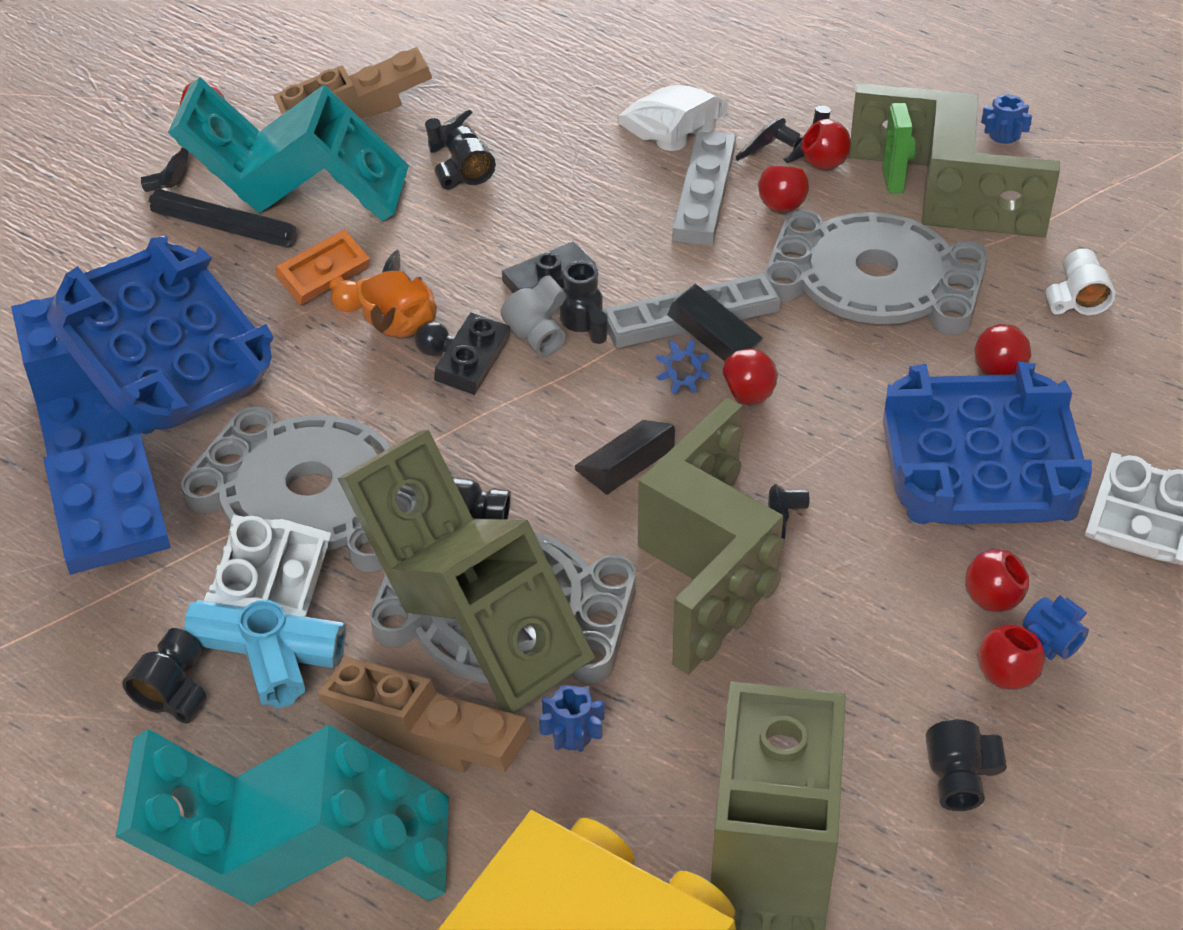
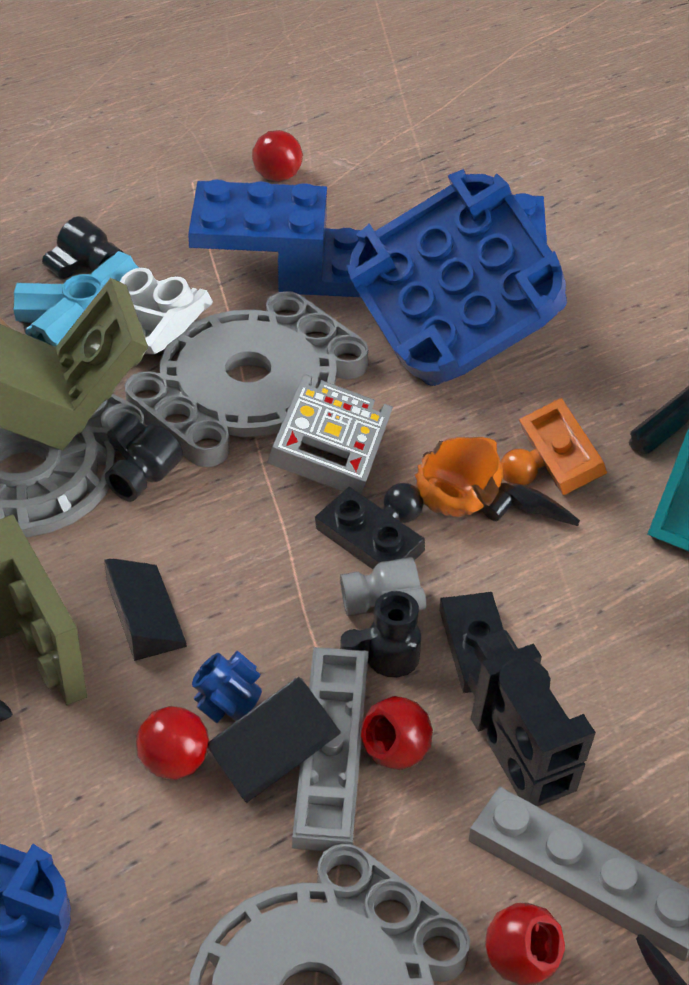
camera: 110 degrees right, 0 degrees up
(373, 397) = (333, 422): none -> light grey container
(628, 203) = (524, 721): none -> black hips
(666, 272) = (397, 733): none -> red piece

